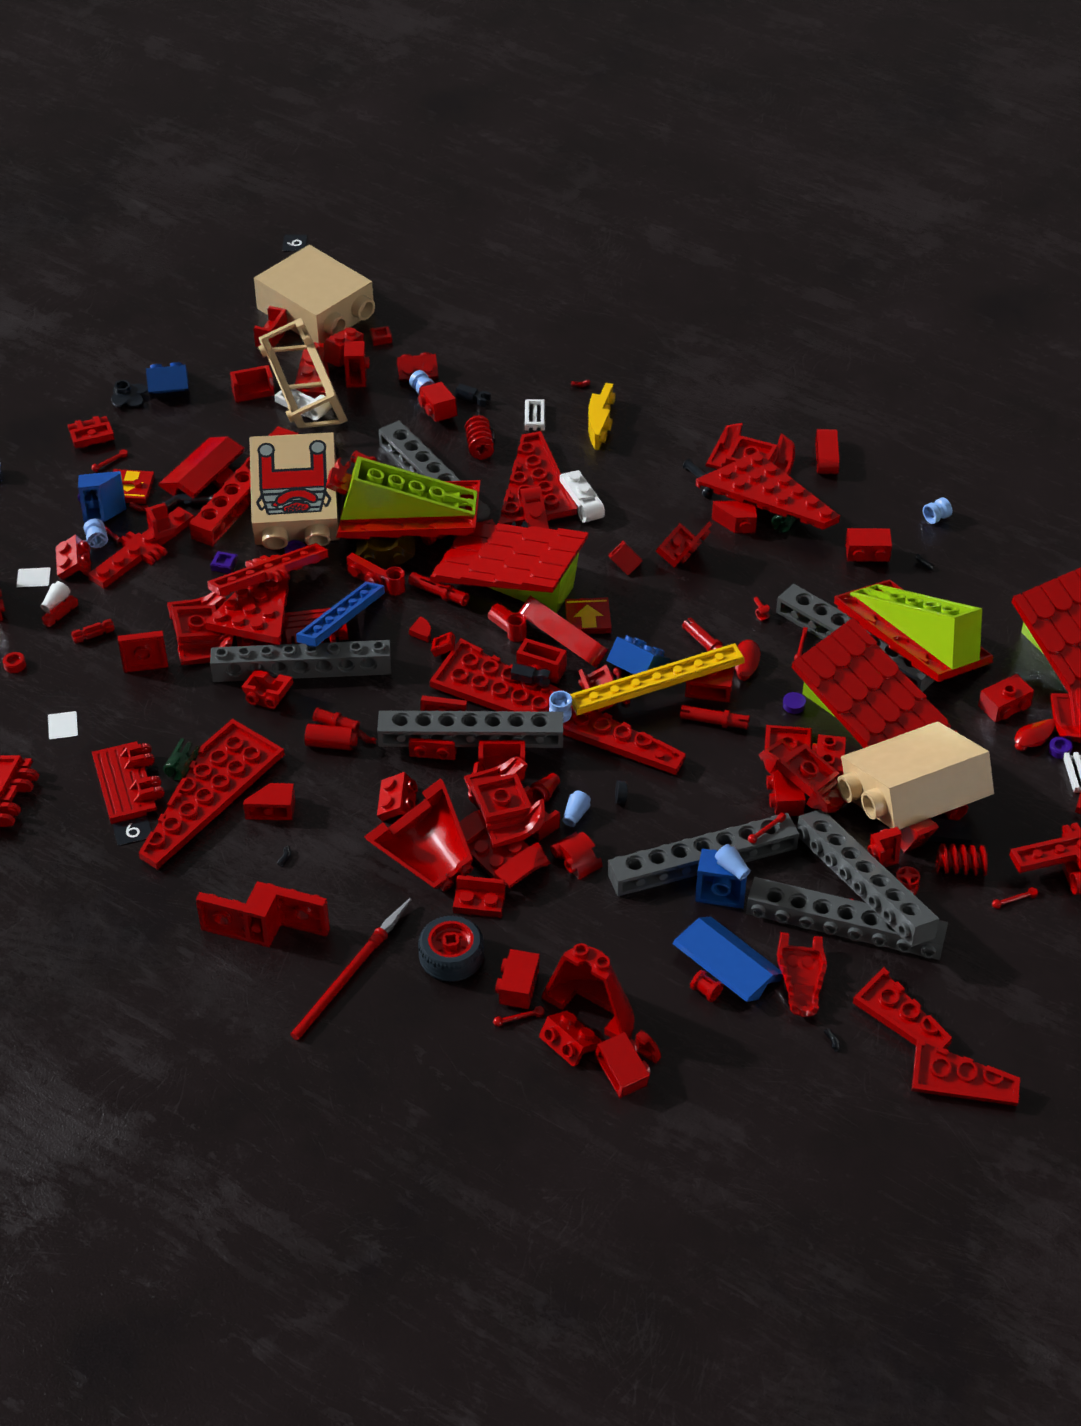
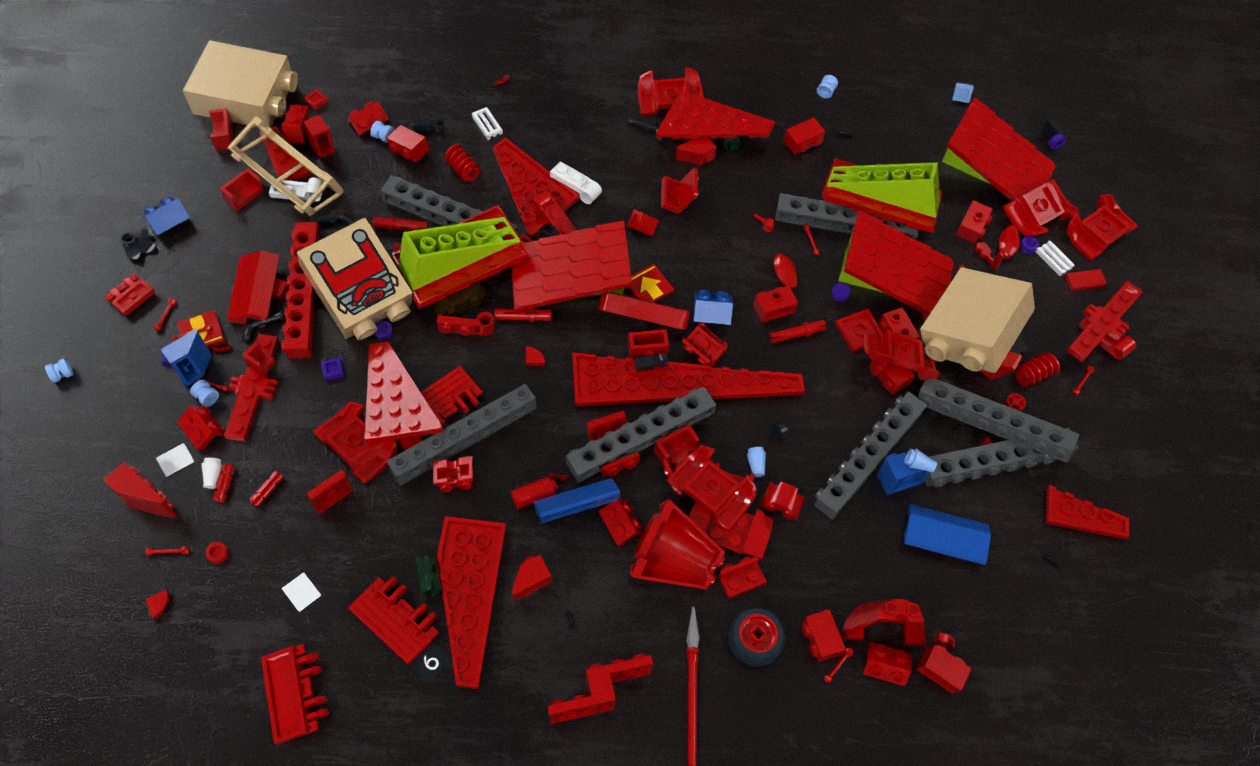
camera: 35 degrees left, 15 degrees up
(267, 569) = (382, 365): red hinge -> none
(294, 242) = (182, 39): black sticker -> none
(334, 719) = (526, 475): red pin -> none
(338, 479) = (394, 257): red plate -> none
(340, 614) = (469, 378): blue plate -> none
(363, 756) = (576, 500): none -> blue slope
(443, 644) = (562, 364): red tile -> none
(510, 622) = (596, 320): red piece -> none
(545, 787) = (723, 454): red cone -> none
(561, 702) = (692, 379): light blue wheel -> none
(599, 415) = (539, 106): yellow slope -> none
(656, 678) = (744, 323): yellow tile -> none
(701, 635) = (748, 268): red pin -> none
(706, 985) = (948, 565): red bush -> none
(780, 818) = (903, 426): red hinge -> none
(803, 973) = (1003, 517): red animal -> none
(827, 451) = (721, 68): red beam -> none
(886, 846) = (989, 389): red bracket -> none
(956, 1076) = (1153, 547): red wing -> none
(997, 734) = (985, 253): none -> red piece

